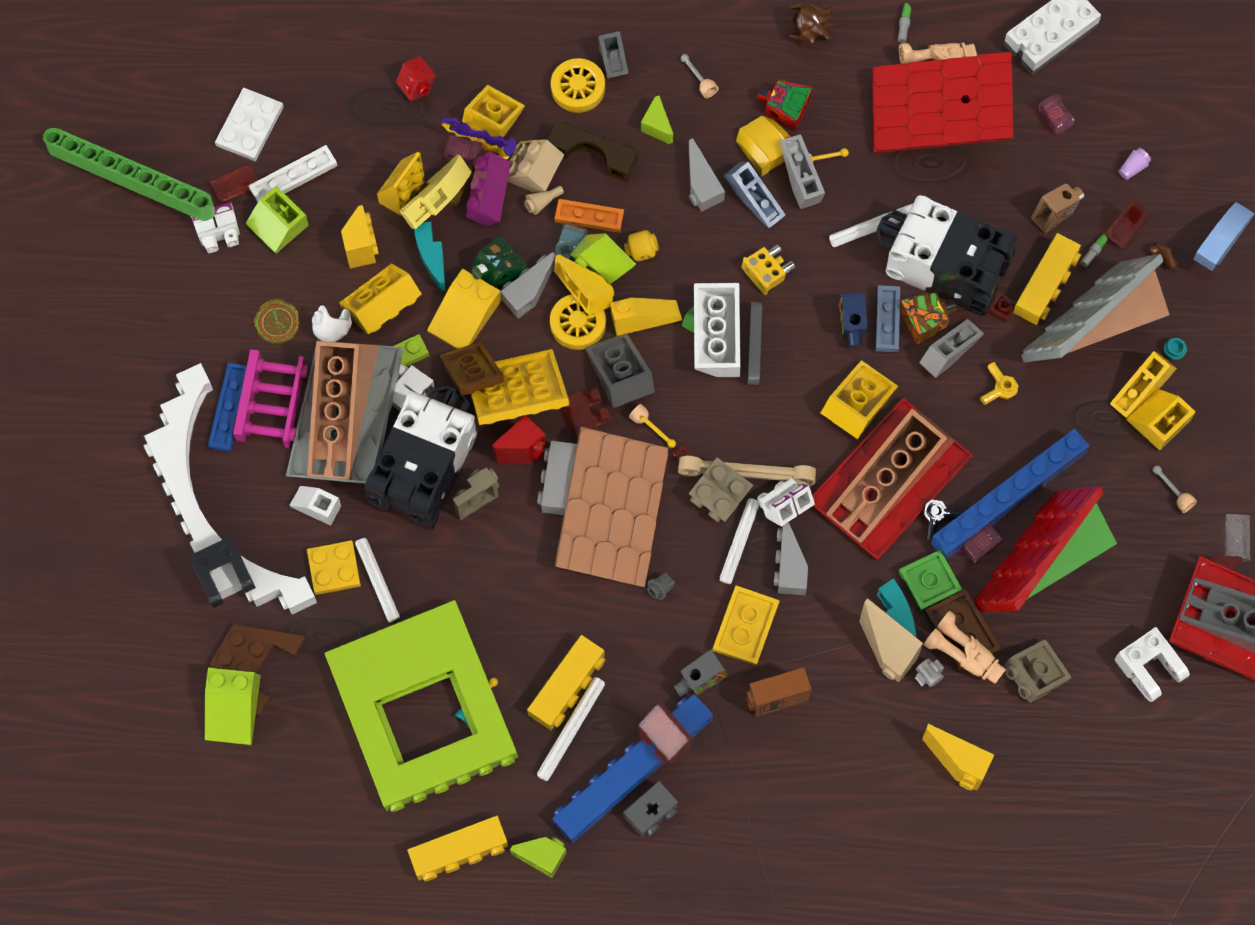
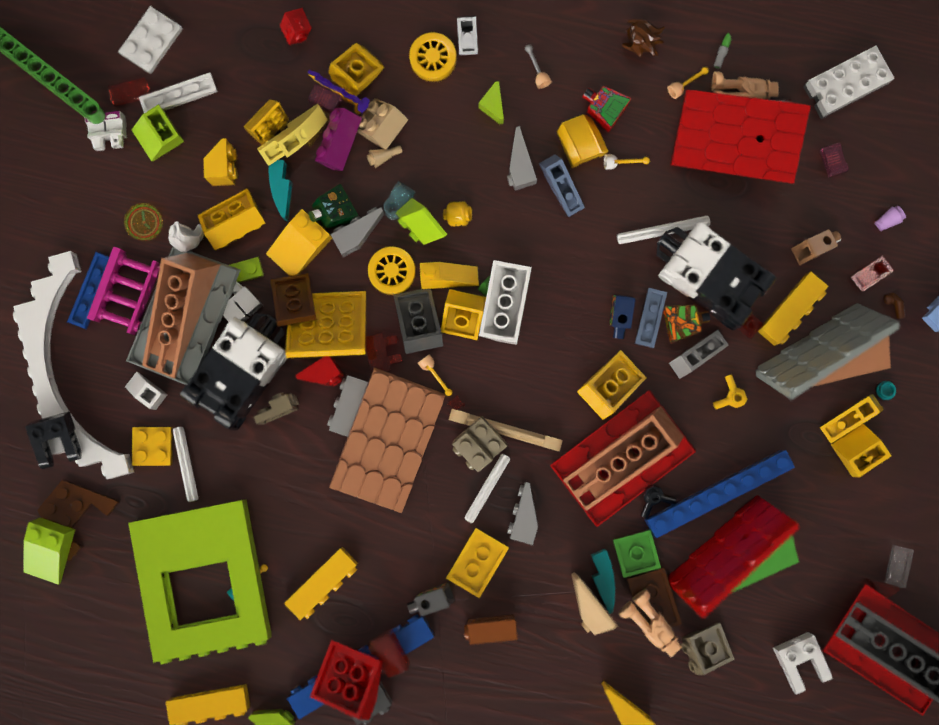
camera: 15 degrees right, 15 degrees up
(570, 729) = (318, 621): white axle -> none
(586, 286) = (403, 244): yellow slope -> none
(589, 215) = (419, 178): orange plate -> none
(618, 158) = (414, 106): dark brown arch -> none
(623, 778) = (348, 681): none -> red slope
(660, 586) = (414, 515): dark grey hose -> none
(671, 353) = (463, 314): none -> yellow slope
(755, 343) = (535, 318): dark grey beam -> none
(766, 270) = (551, 256): yellow piece -> none
(786, 501) = (531, 465): white hips -> none
(801, 172) = (605, 174): light grey slope -> none
(861, 70) = (676, 89): none -> hinge
(929, 672) = (619, 634): light grey gear -> none
(982, 544) = (687, 532): clear pink piece -> none
(1094, 250) = (838, 289): light grey piece -> none
(1185, 500) = (862, 526): hinge -> none

